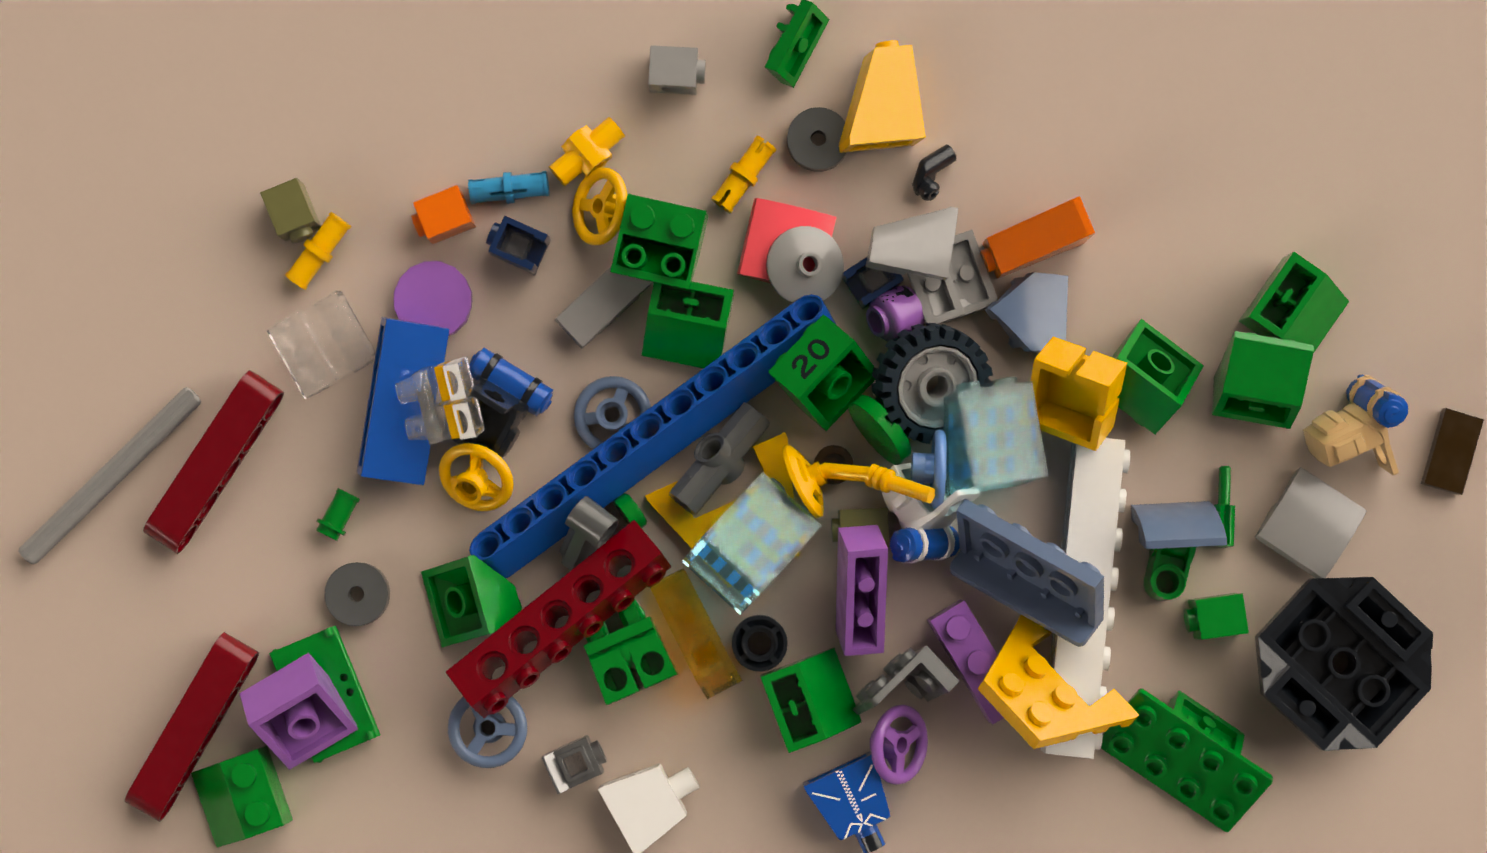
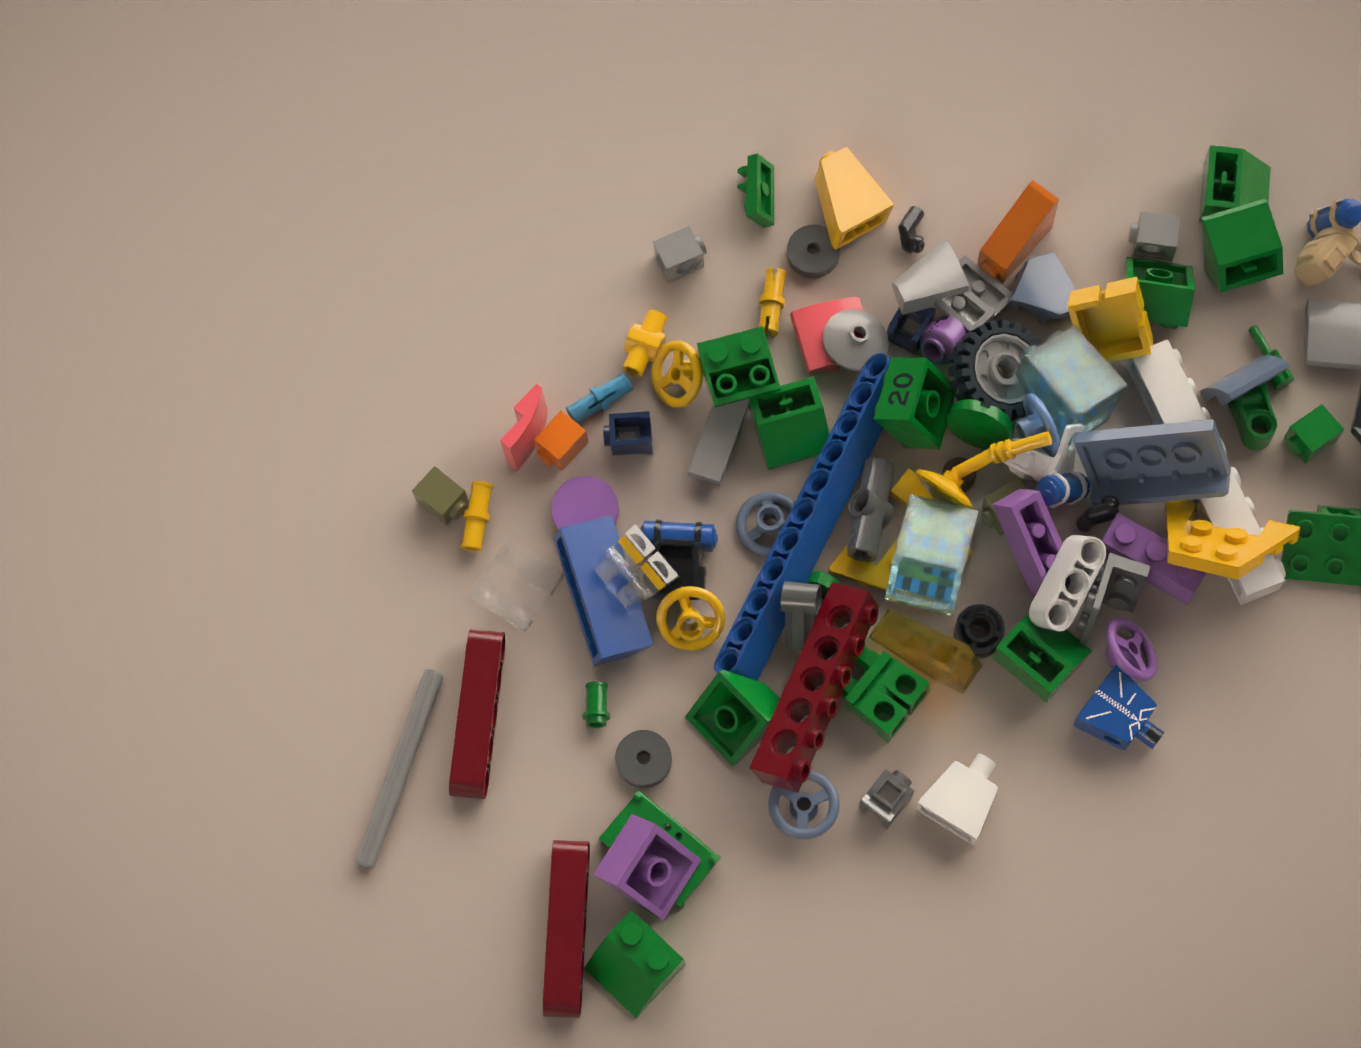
camera: 20 degrees left, 15 degrees down
(422, 179) = (531, 420): none -> coral slope
(858, 668) = (1081, 574): none -> white beam
(944, 587) = (1098, 513): none -> black arm
(1182, 314) = (1155, 236): none -> light grey brick

